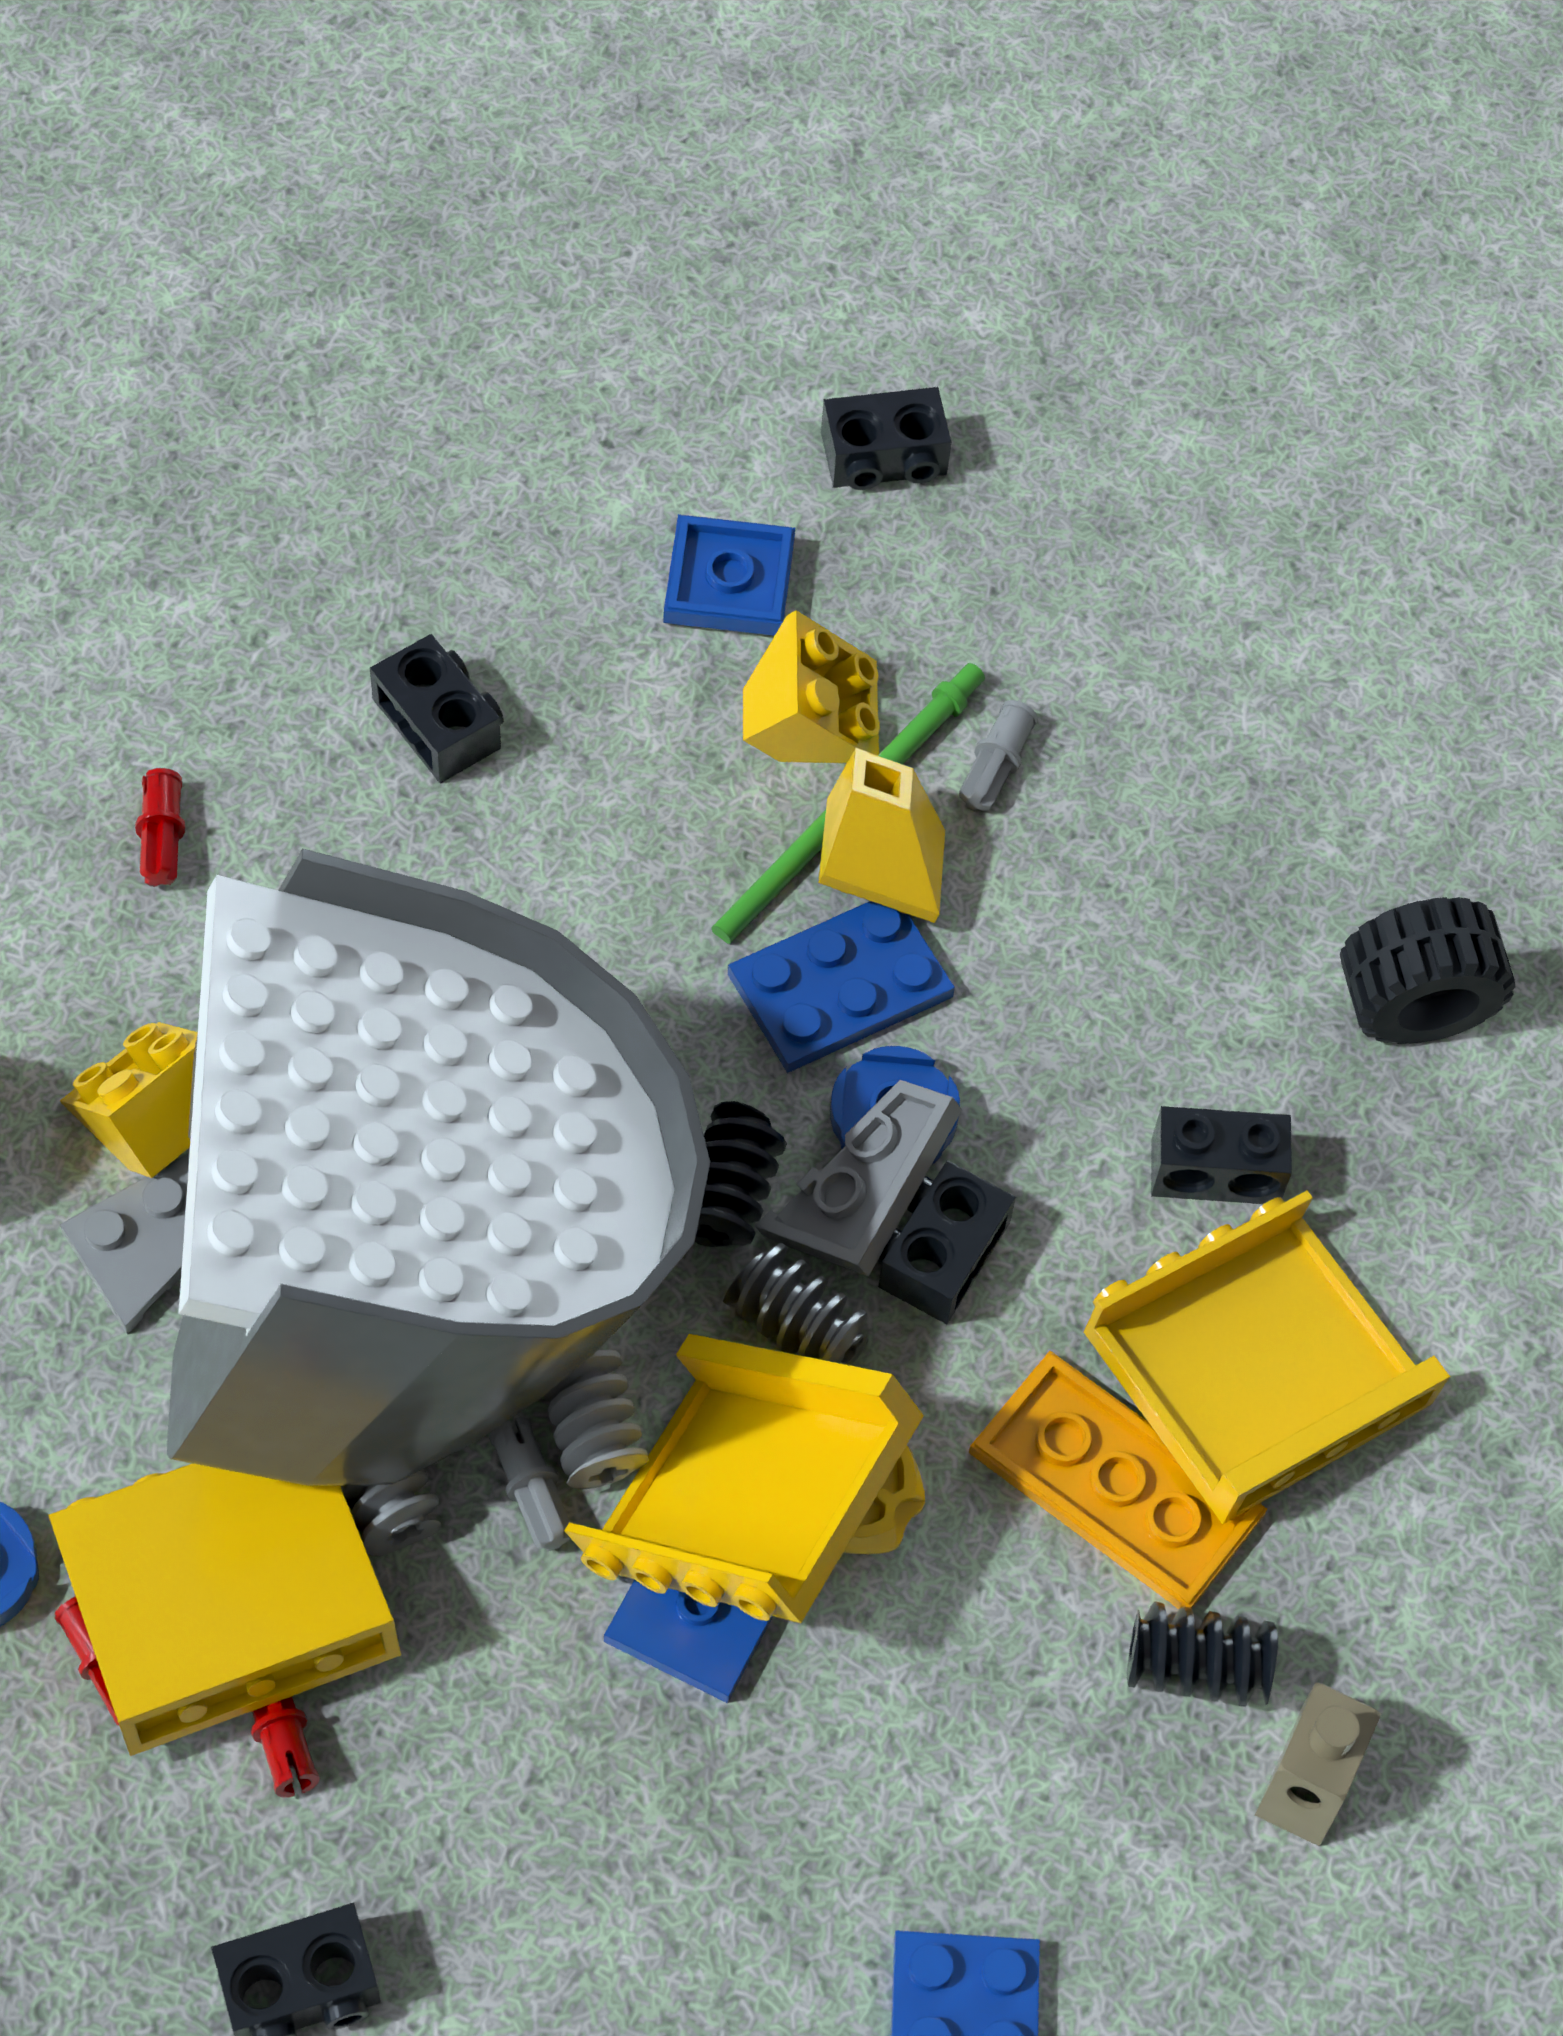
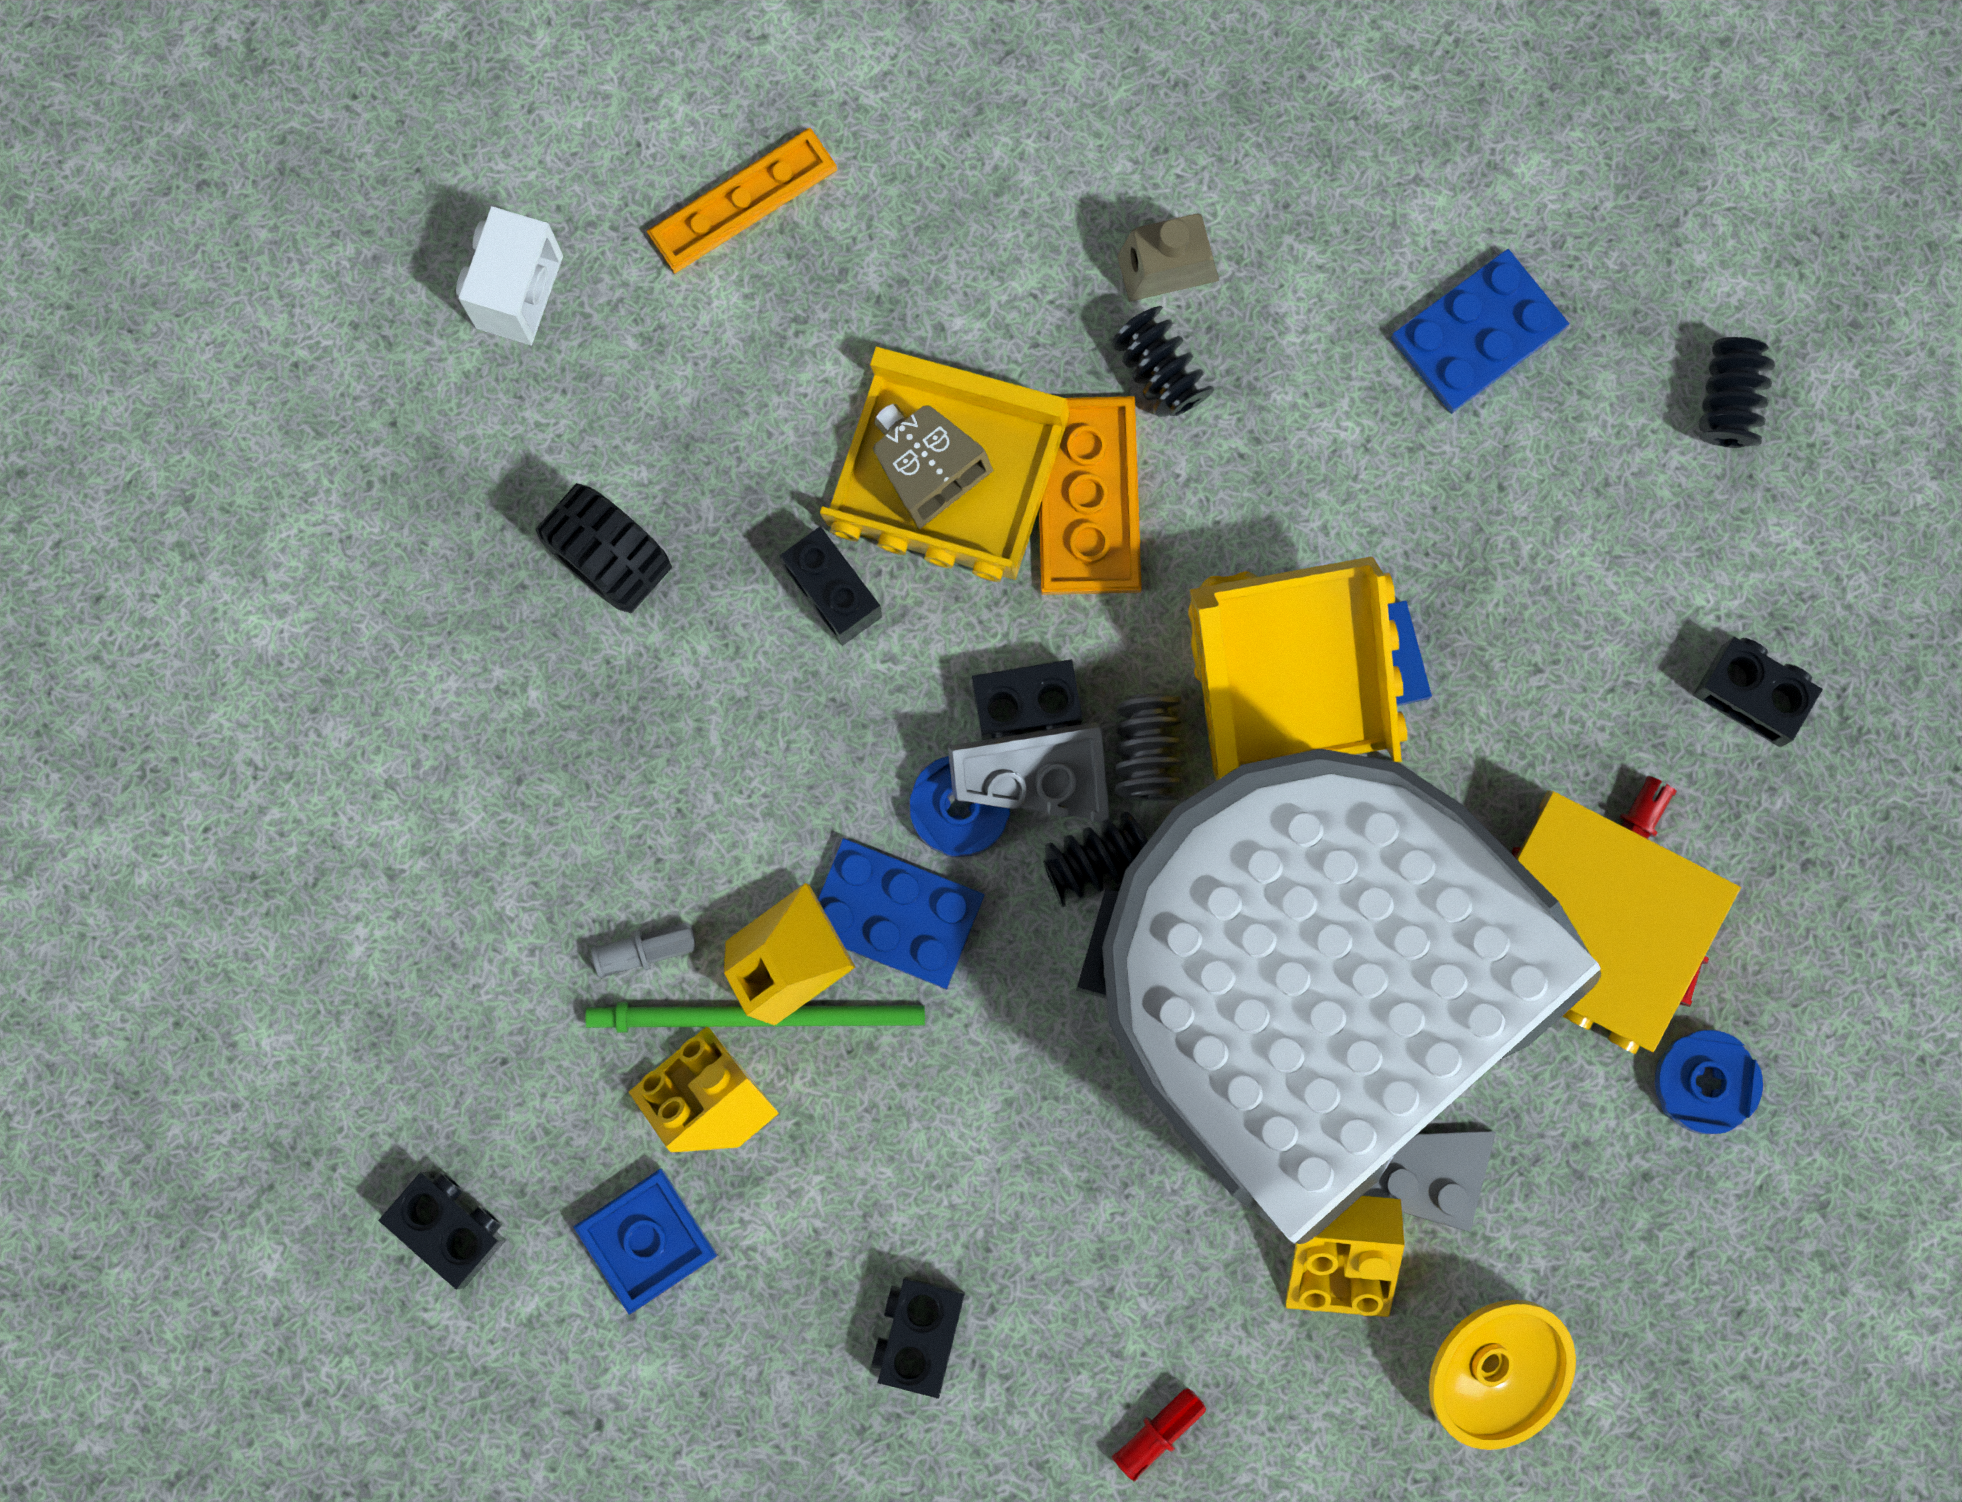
camera: 125 degrees left, 20 degrees up
(1281, 1327) = (928, 460): none -> dark tan torso

